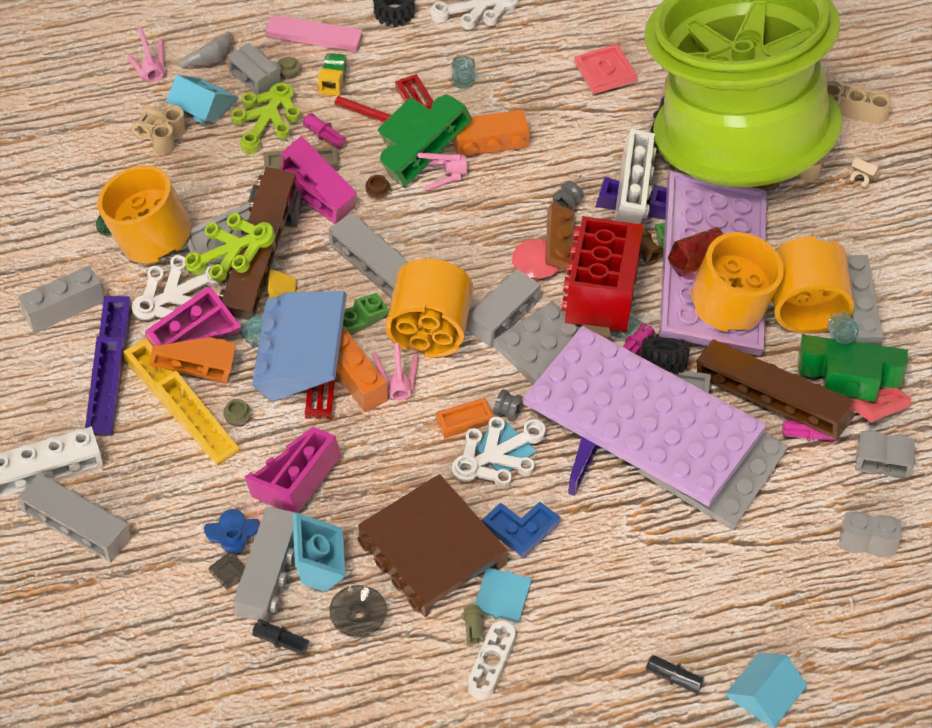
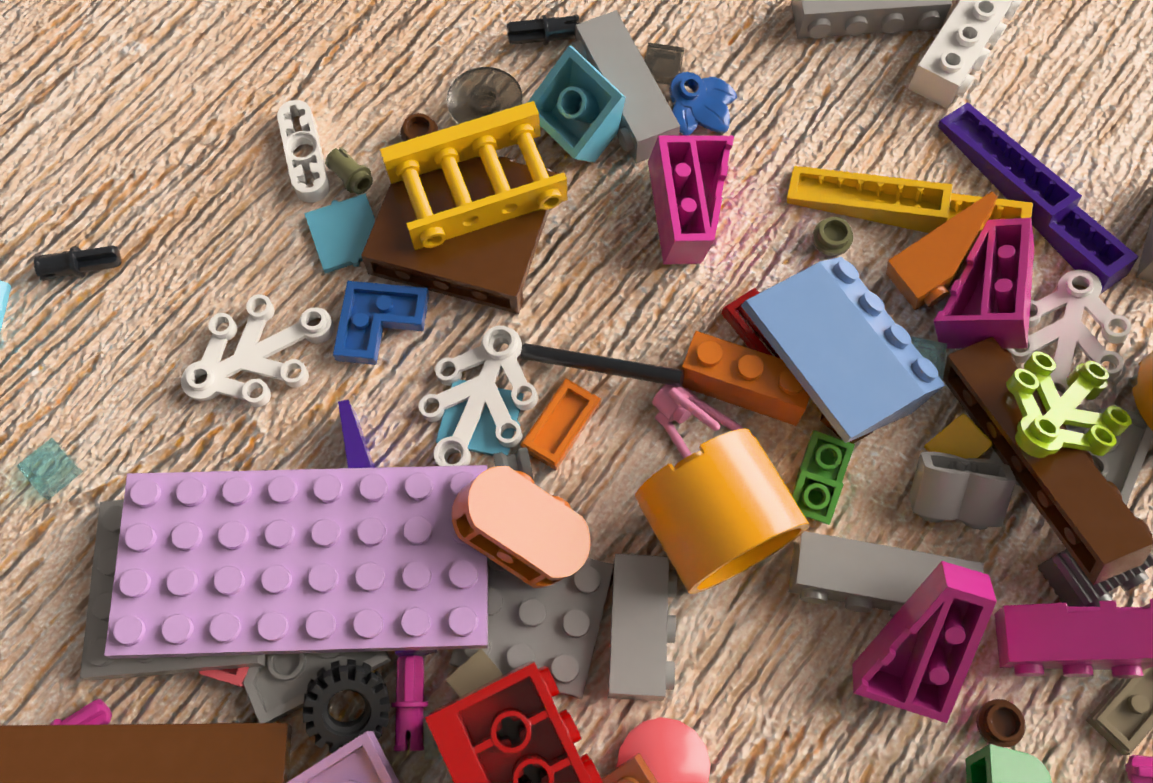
camera: 145 degrees right, 15 degrees up
(304, 262) = (961, 489): none -> light grey brick
(387, 213) = (928, 644): none -> dark pink wedge
(408, 565) = (462, 142): none -> yellow fence
(412, 623) = (417, 125): none -> reddish brown plate
(421, 422) = (603, 364): none -> black bar
(528, 356) = (521, 526): none -> brick
(604, 552) = (252, 355): none -> white plant
(754, 565) = (49, 468): none -> clear light blue plate

